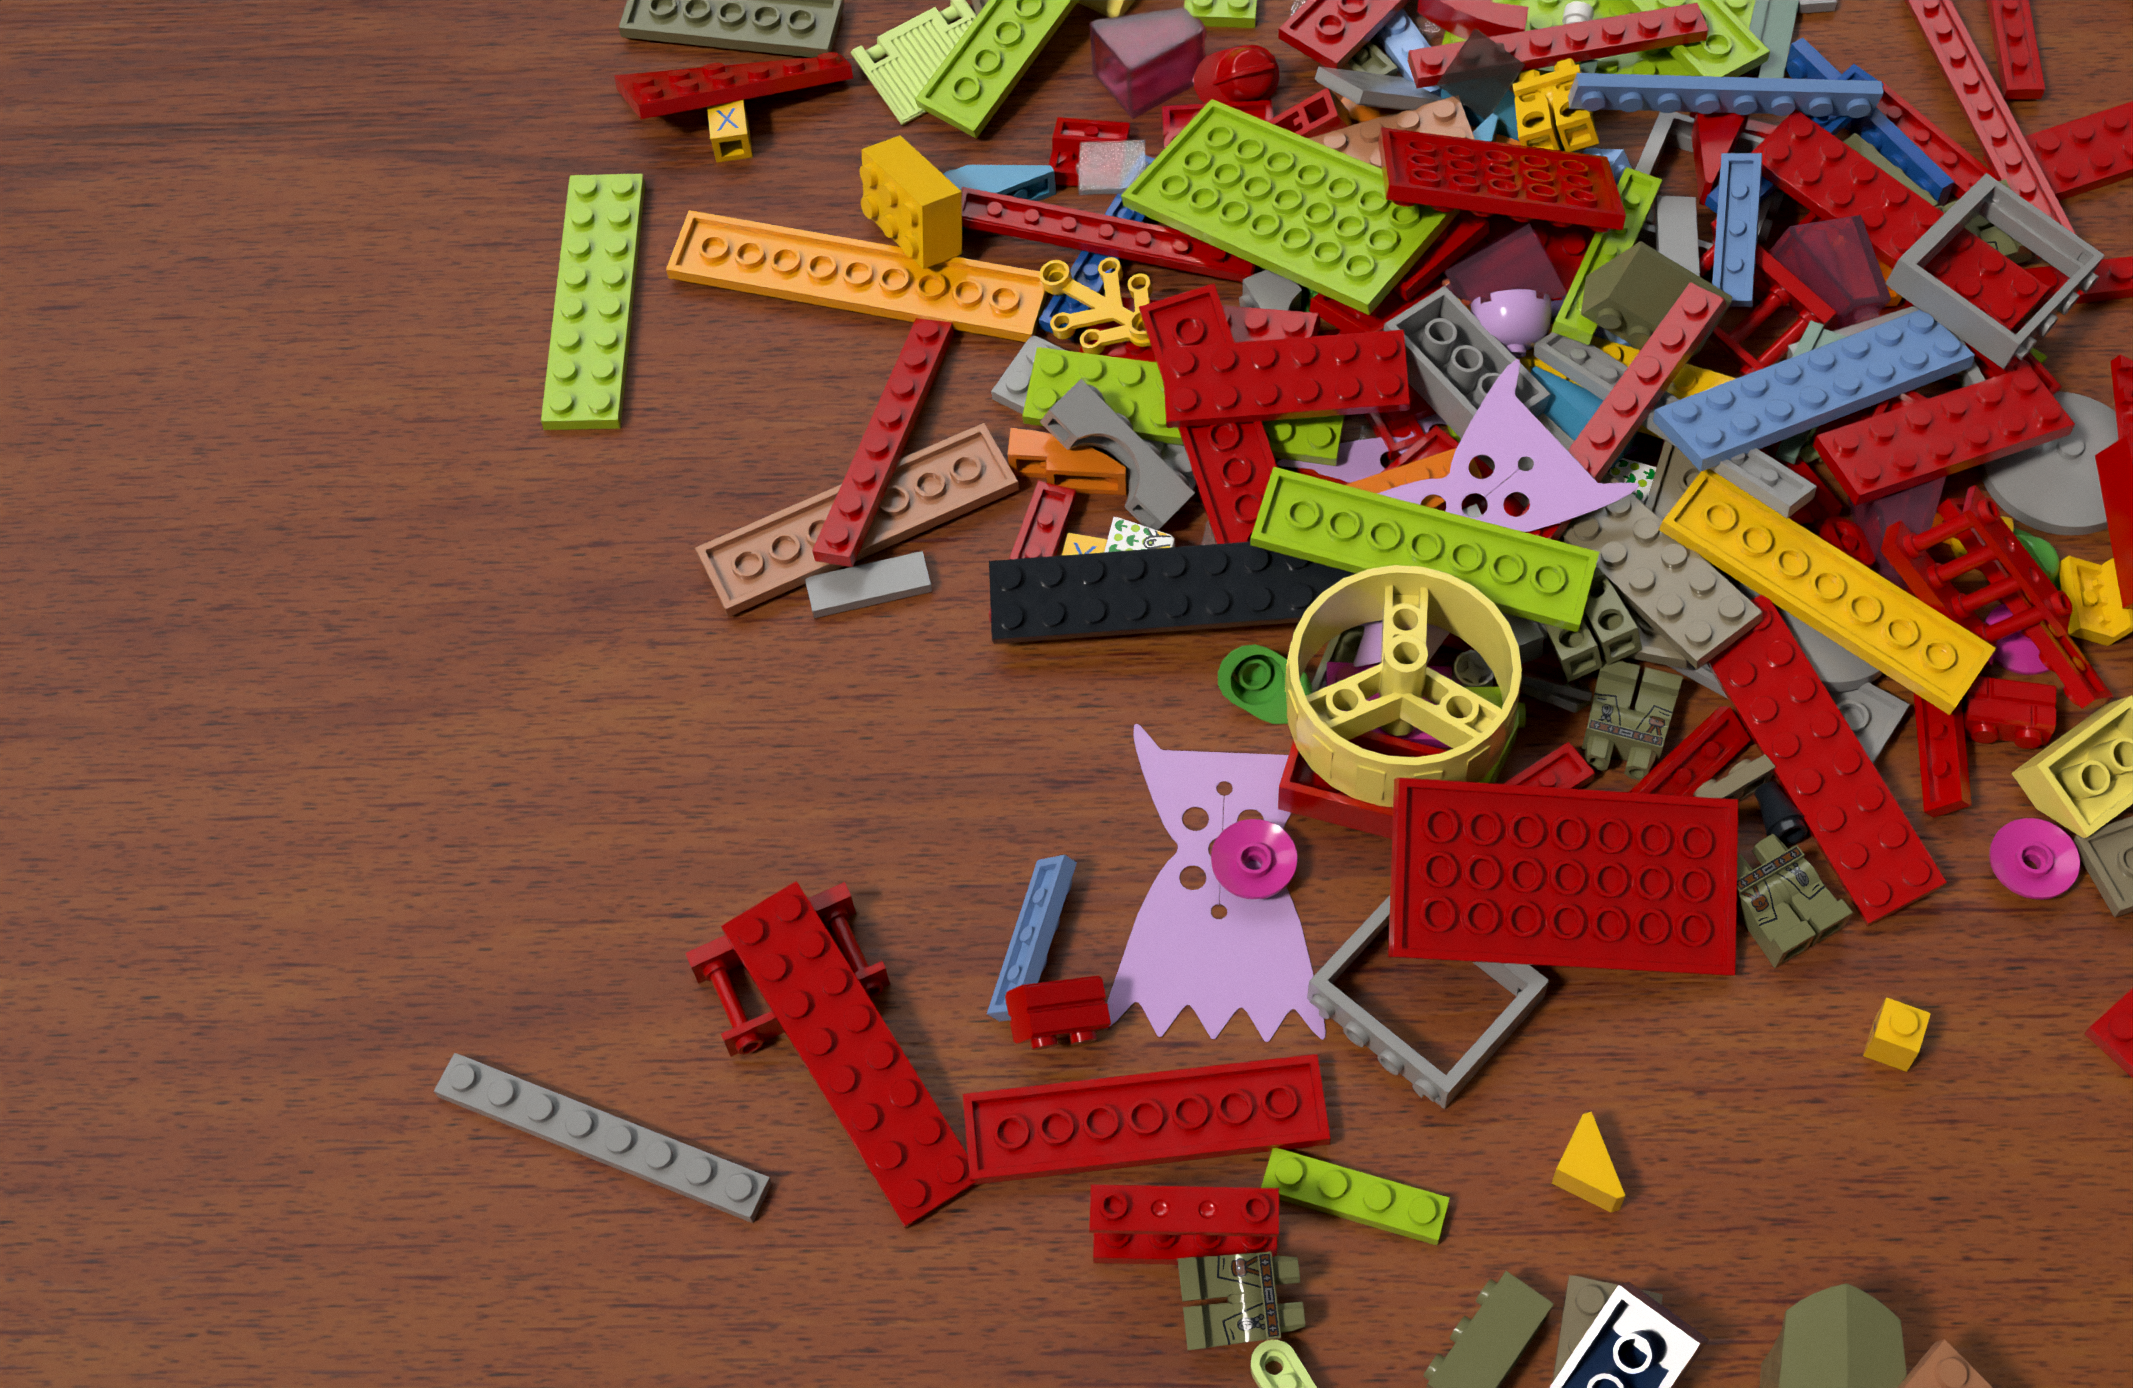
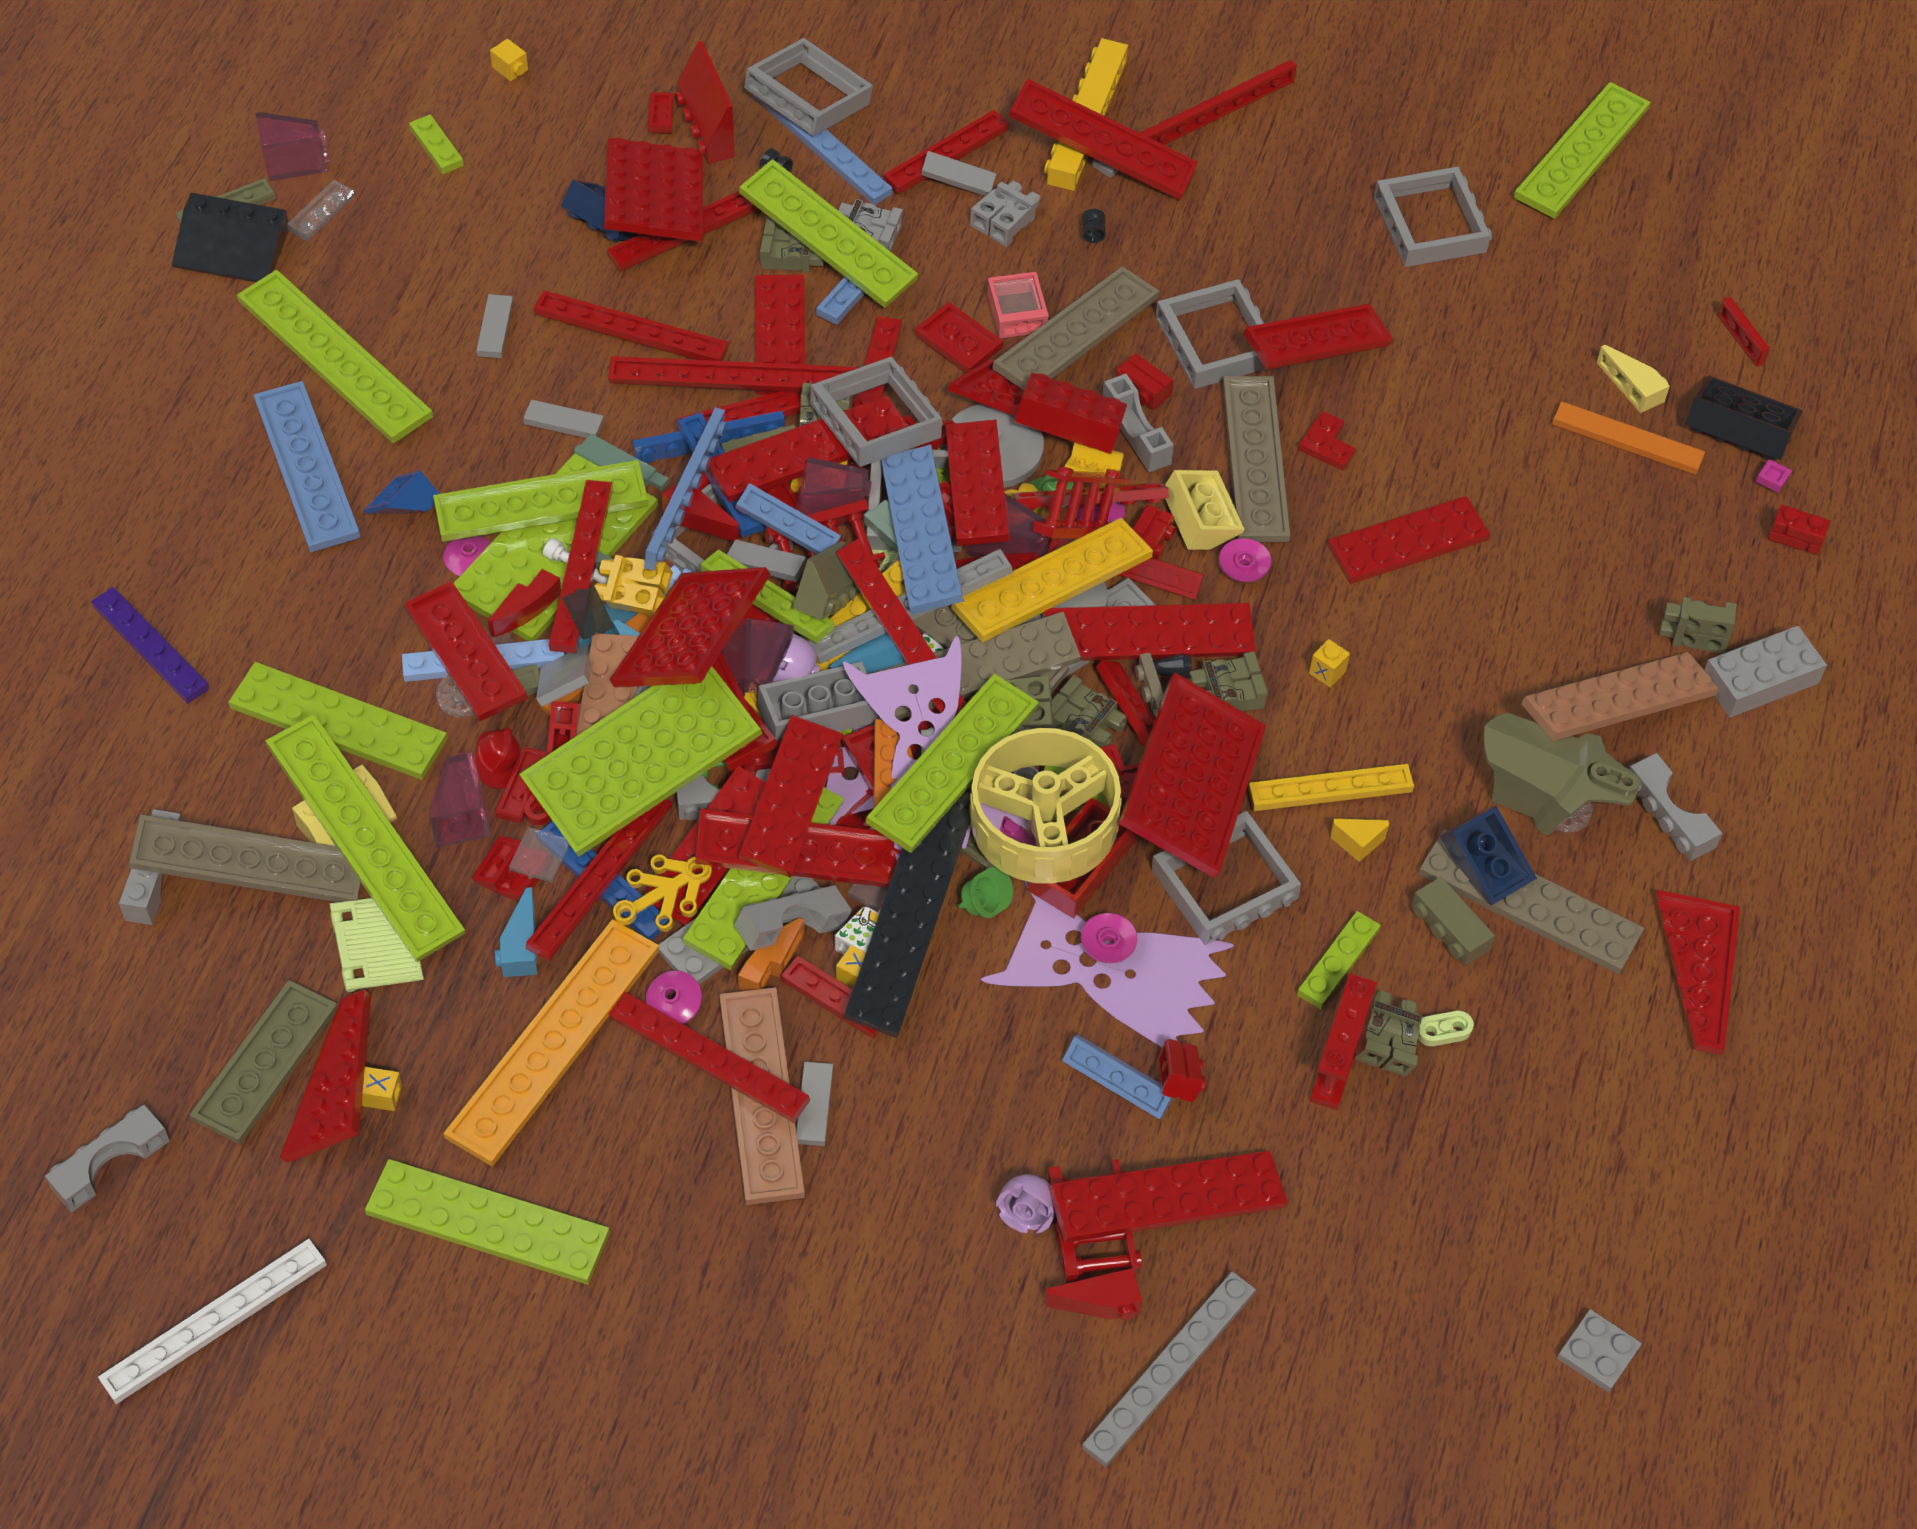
camera: 80 degrees left, 5 degrees down
(395, 93) = (212, 1321): none -> white plate
(678, 1017) = (1102, 1296): none -> red slope
(793, 861) = (1026, 1203): none -> lavender cylinder
(911, 201) = (522, 978): yellow brick -> none
(966, 380) = (687, 998): none -> dark pink dish
(1145, 1119) = (1259, 1052): red plate -> none
(1664, 1103) = (1330, 787): none -> yellow plate

